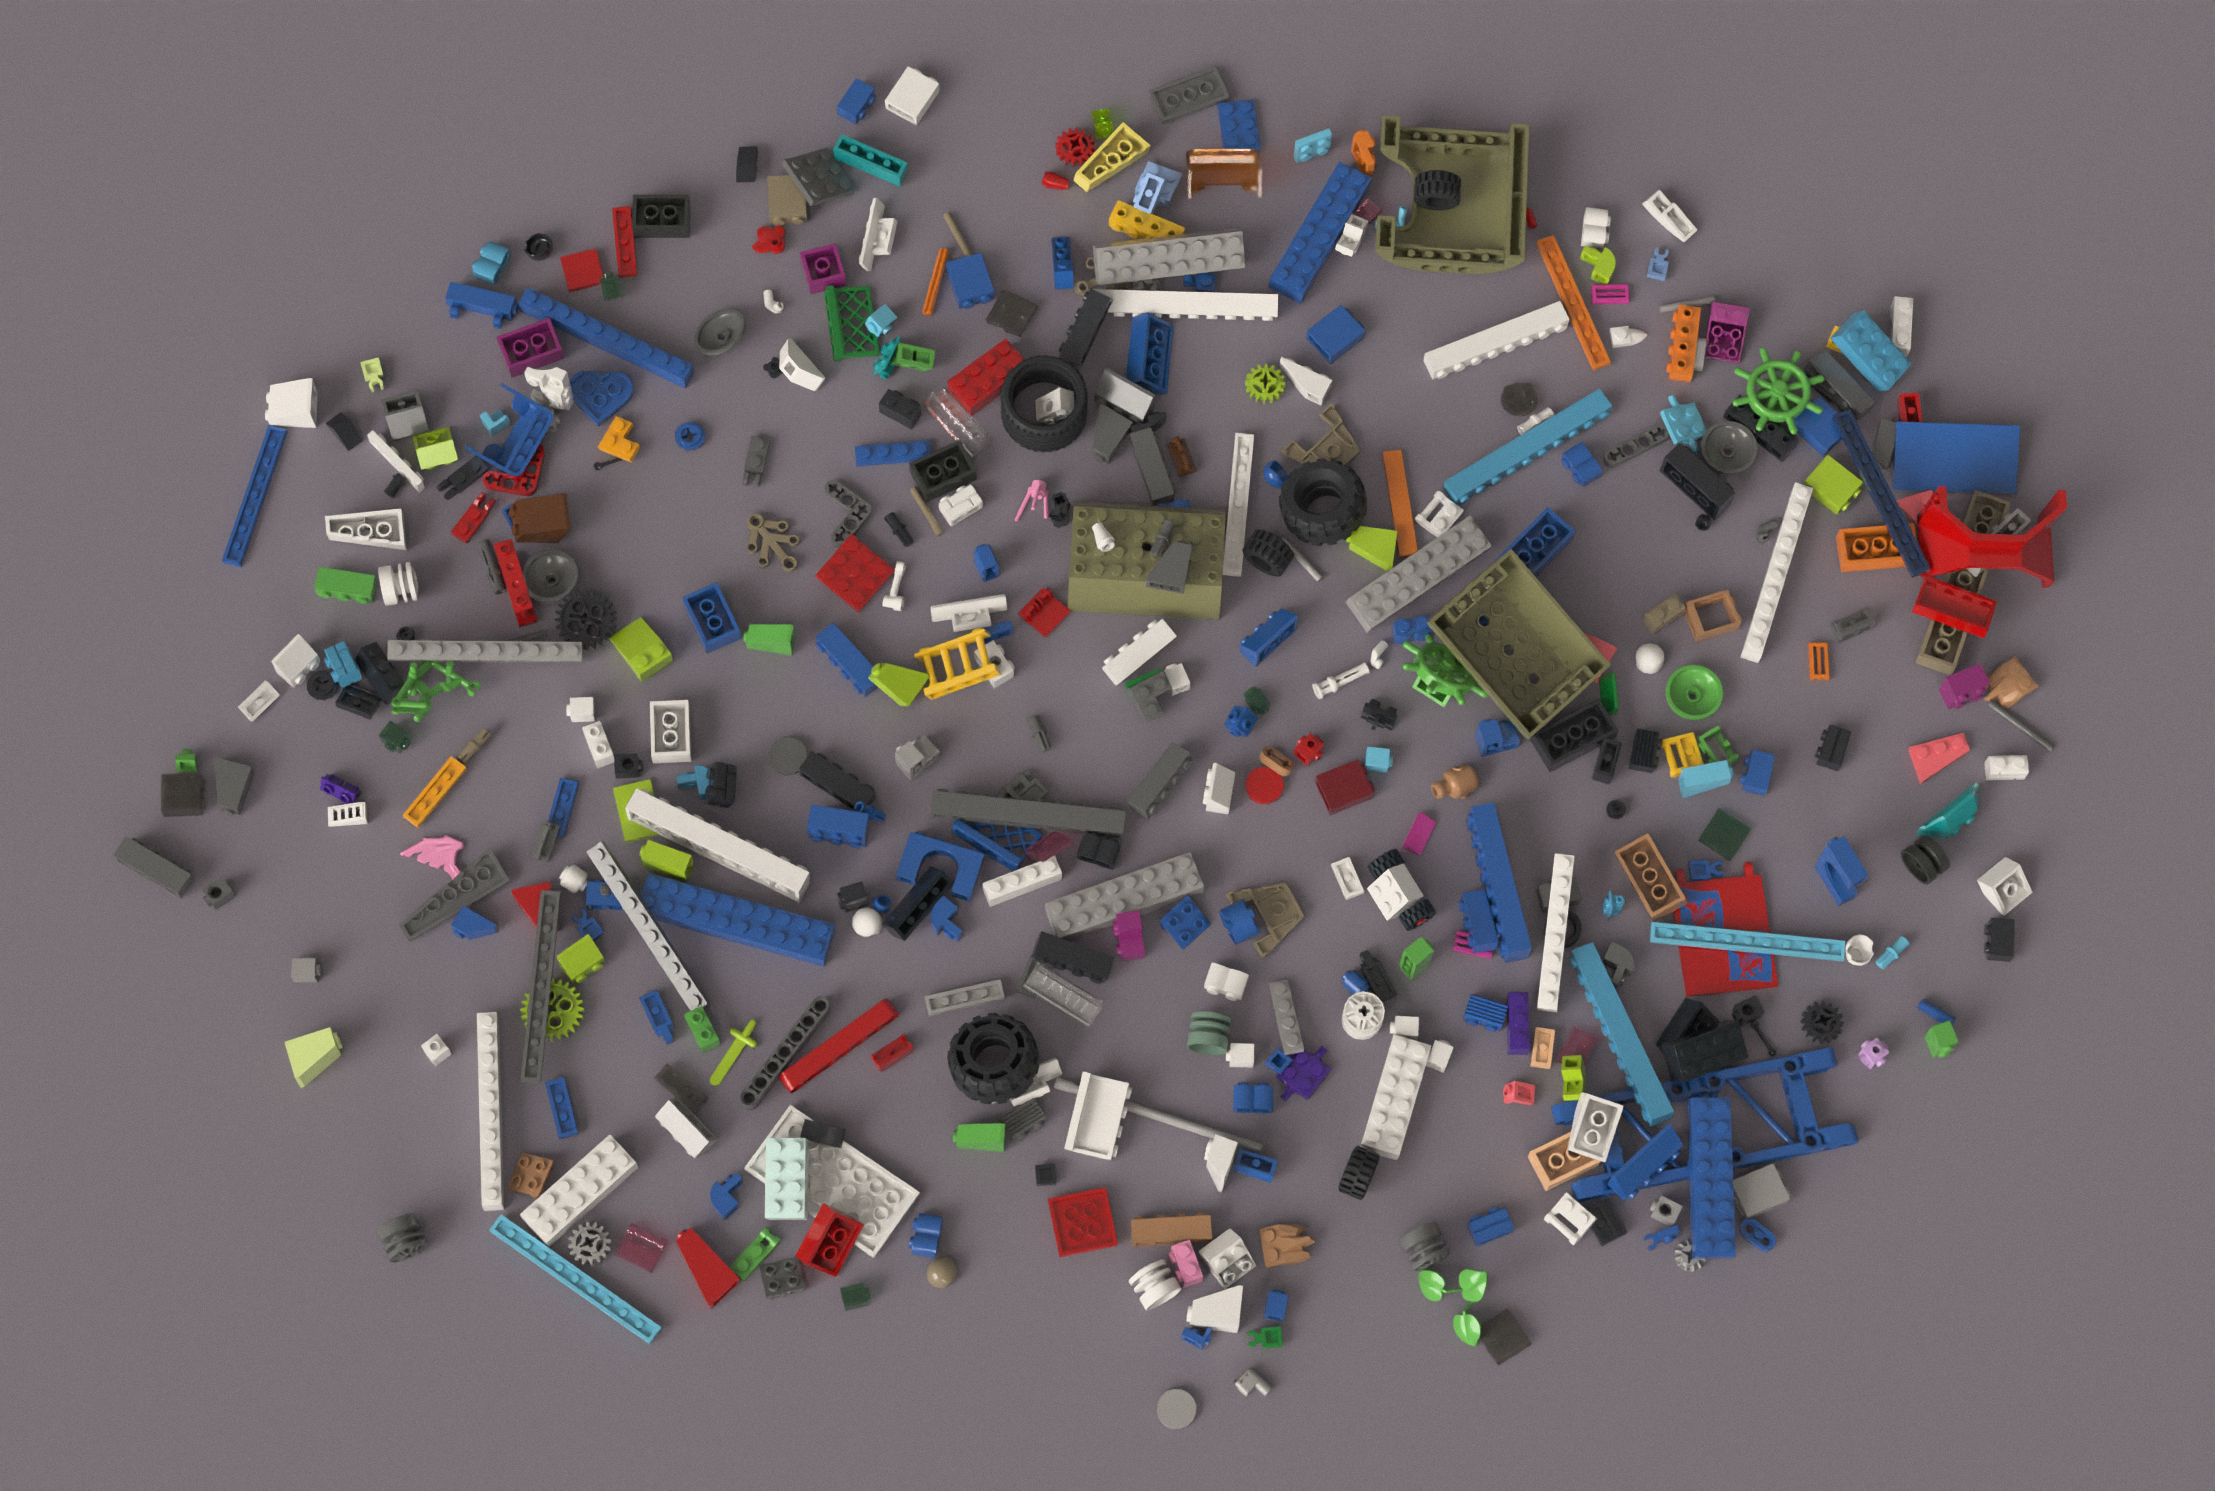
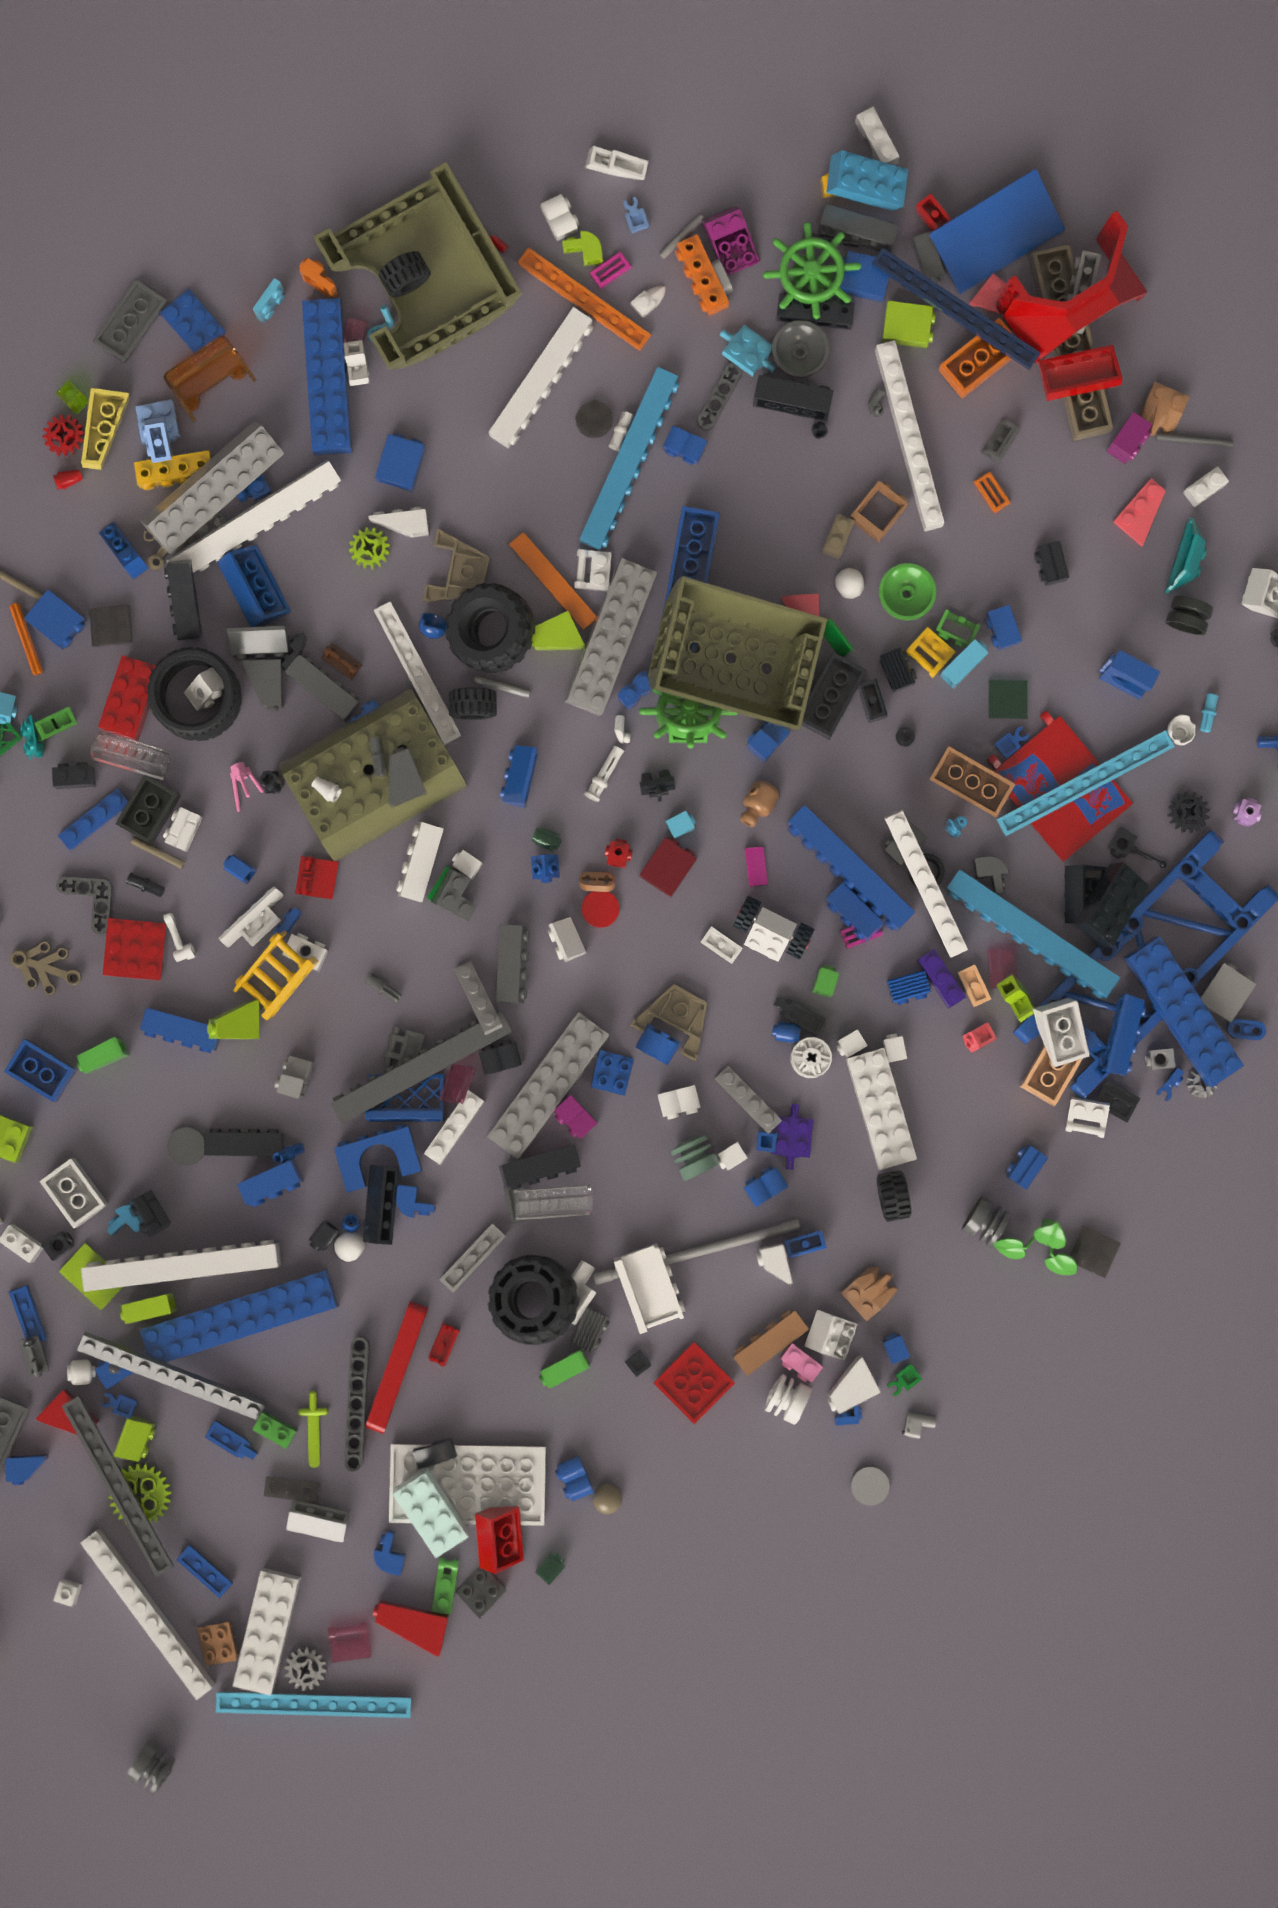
camera: 25 degrees left, 15 degrees up
(1113, 788) = (478, 997): none -> light grey plate

